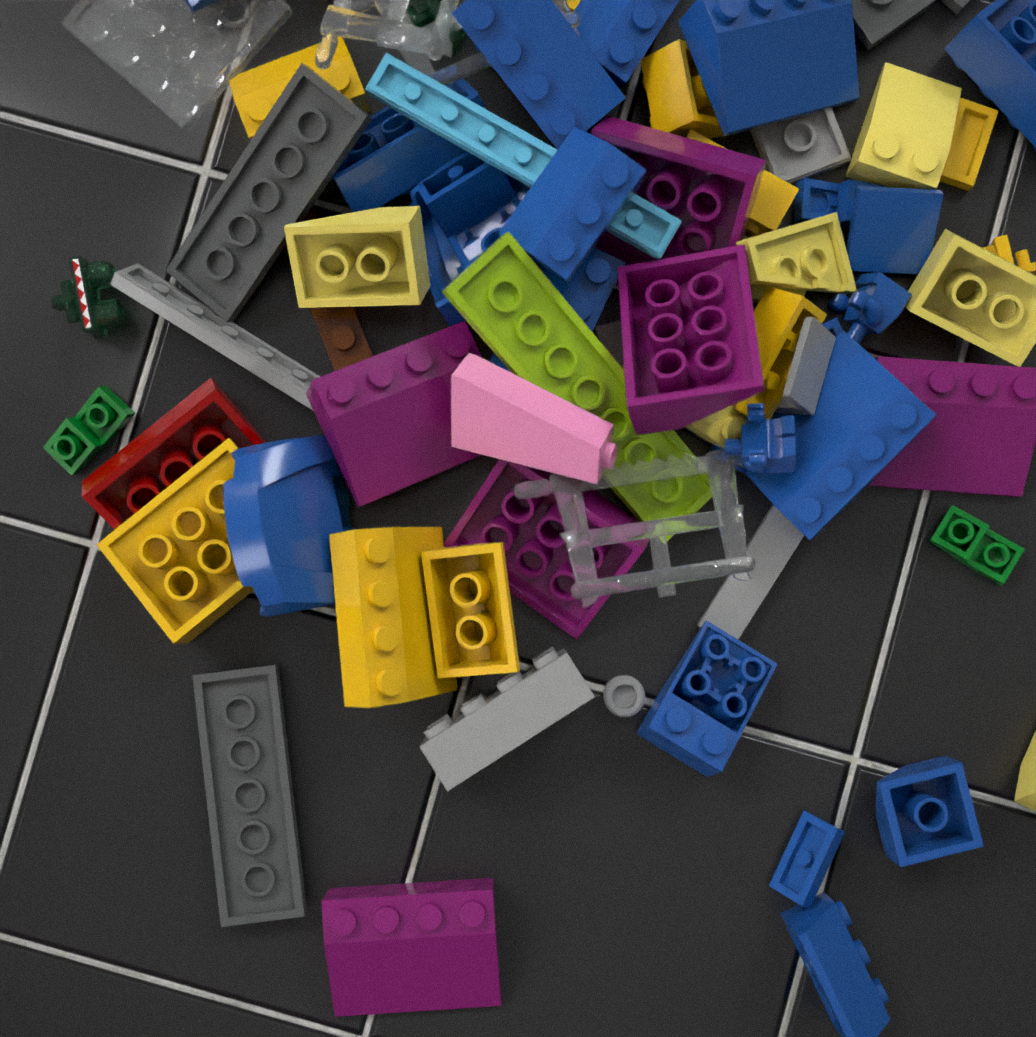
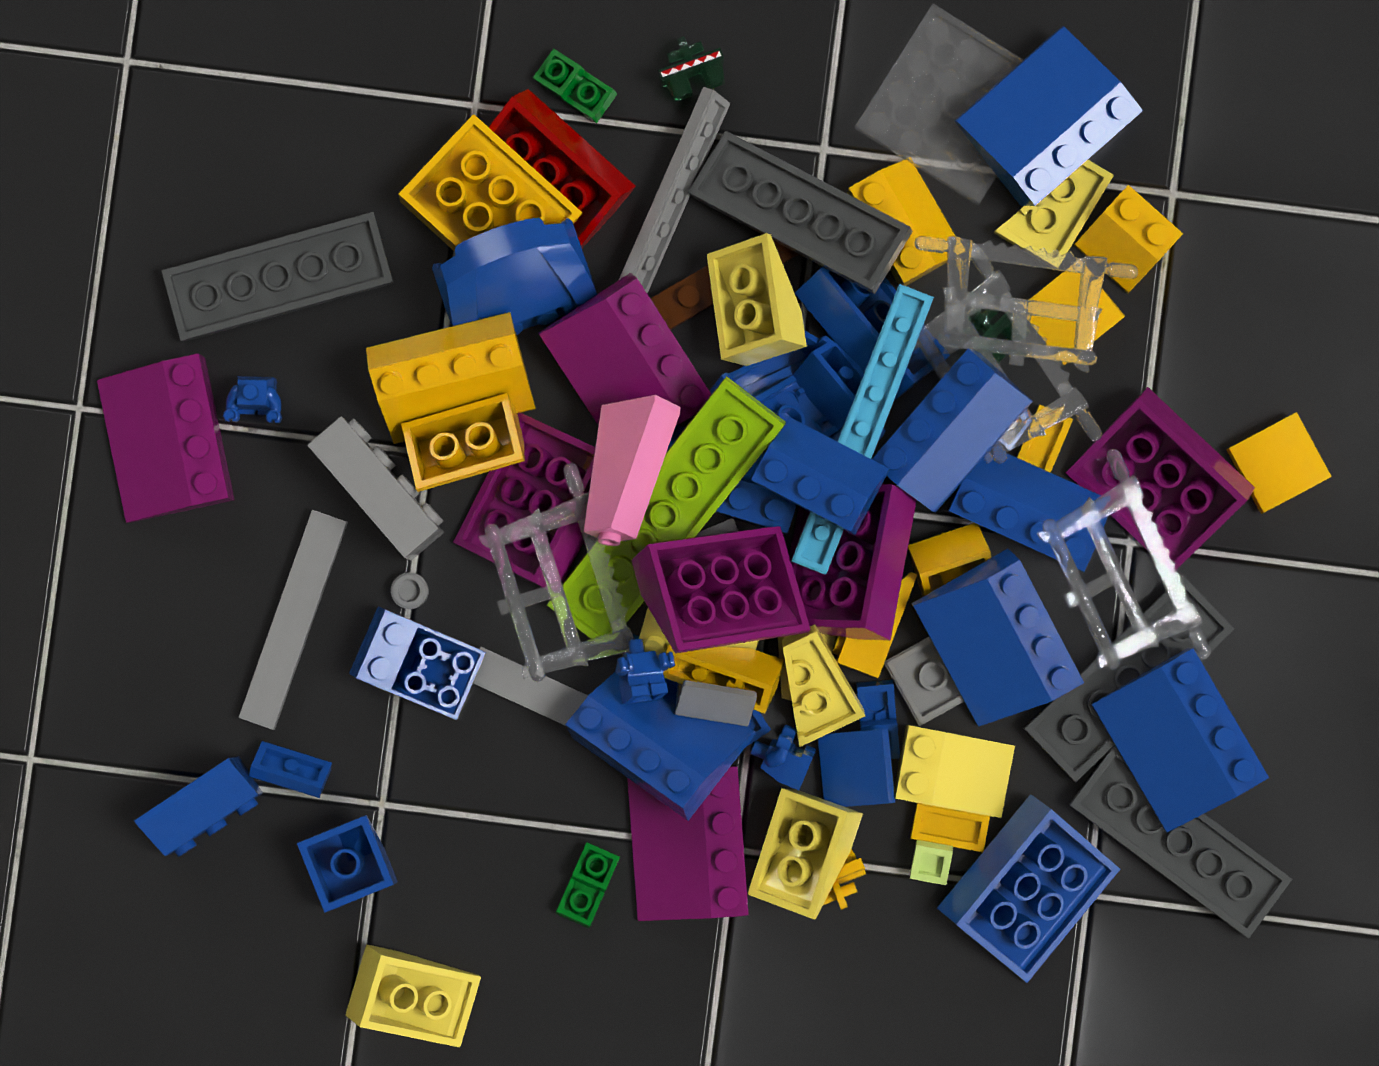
camera: 85 degrees right, 0 degrees up
(379, 842) = (253, 395): none -> blue piece
(638, 831) = (293, 619): none -> light grey tile
(1003, 166) = (931, 862): none -> yellowish green plate

